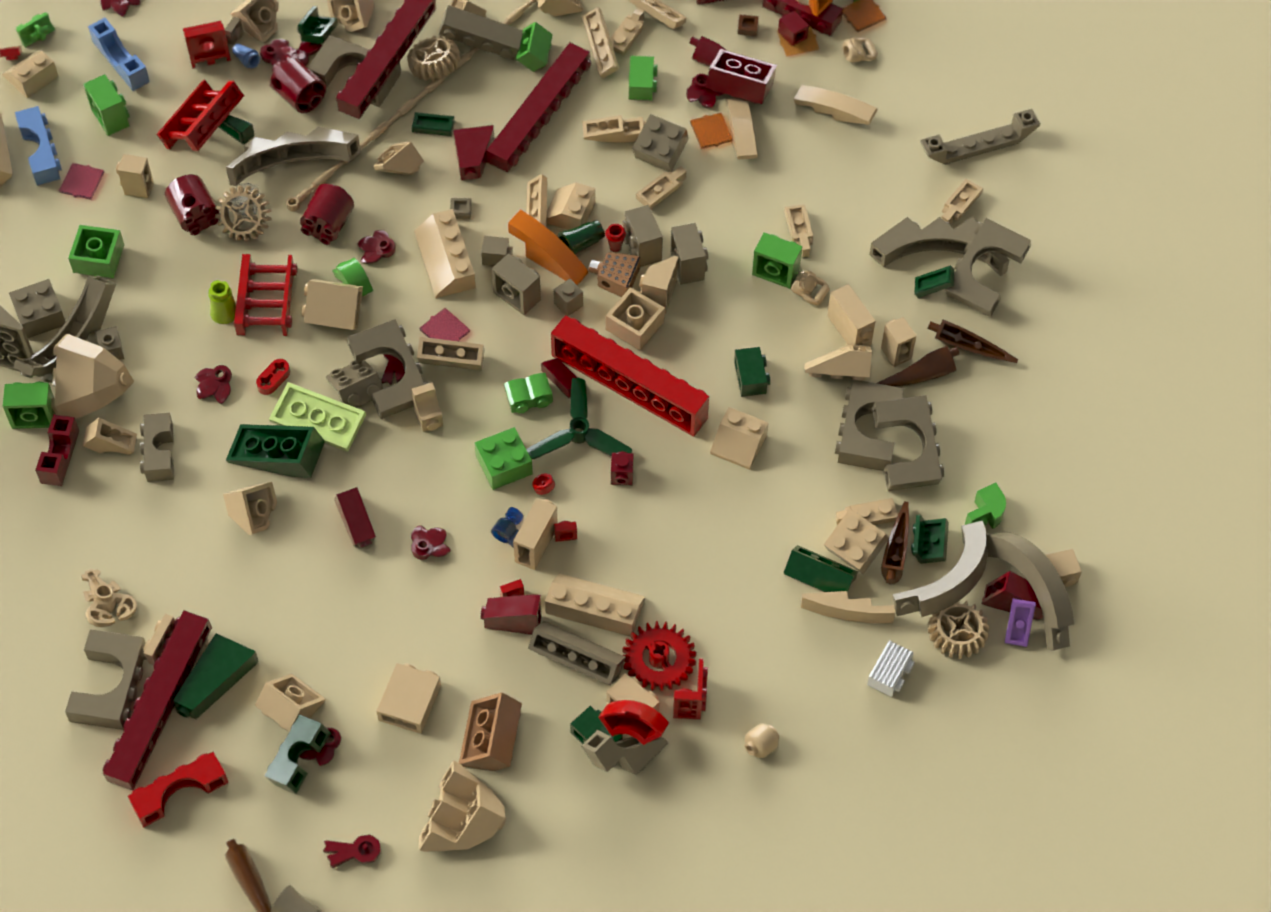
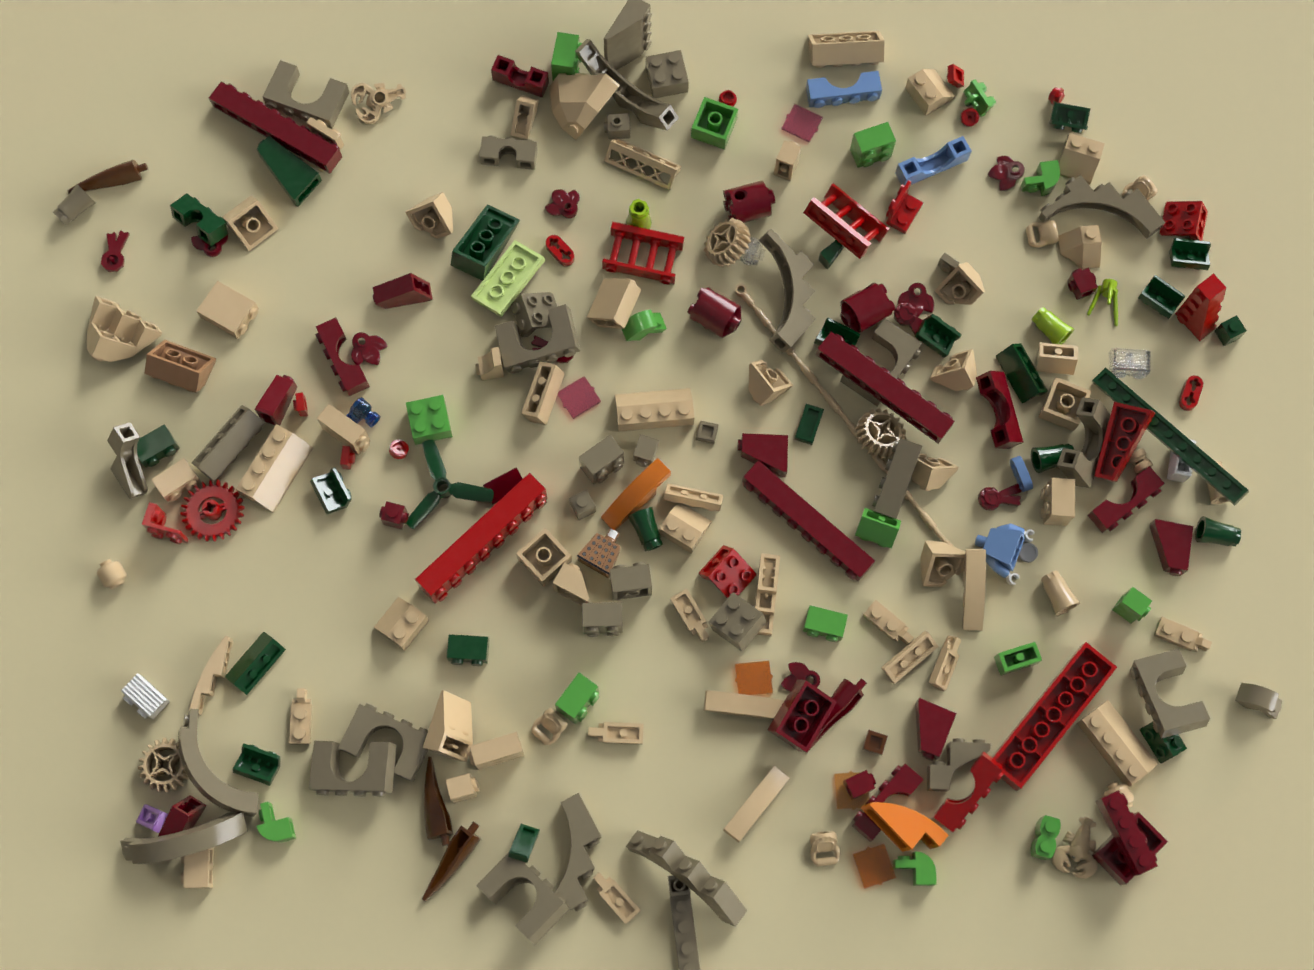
camera: 100 degrees right, 15 degrees up
(58, 35) = (969, 117): none -> red tile
(60, 250) = (728, 97): none -> red plate
(145, 315) = (645, 157): none -> tan fence
(175, 74) = (903, 209): none -> red bracket
(202, 773) = (204, 153): red arch -> none
(206, 43) = (926, 236): red bracket -> none
(249, 57) = (916, 272): medium blue cone -> none
(328, 113) = (849, 335): none -> dark green bracket
(376, 247) = (679, 350): dark red plate -> none
(424, 578) = (351, 376): none -> dark red arch
(528, 393) = (491, 453): bright green brick -> none
(600, 42) = (877, 593): tan tile -> none
(607, 165) = (728, 571): none -> red bracket
(607, 536) = (331, 491): none -> bracket
(615, 236) = (637, 552): red cone -> none
(633, 719) = (144, 470): red brick -> none
(856, 541) = (267, 696): tan brick -> none
(896, 547) = (257, 732): reddish brown piece -> none
(911, 149) = (691, 873): none -> dark tan arch

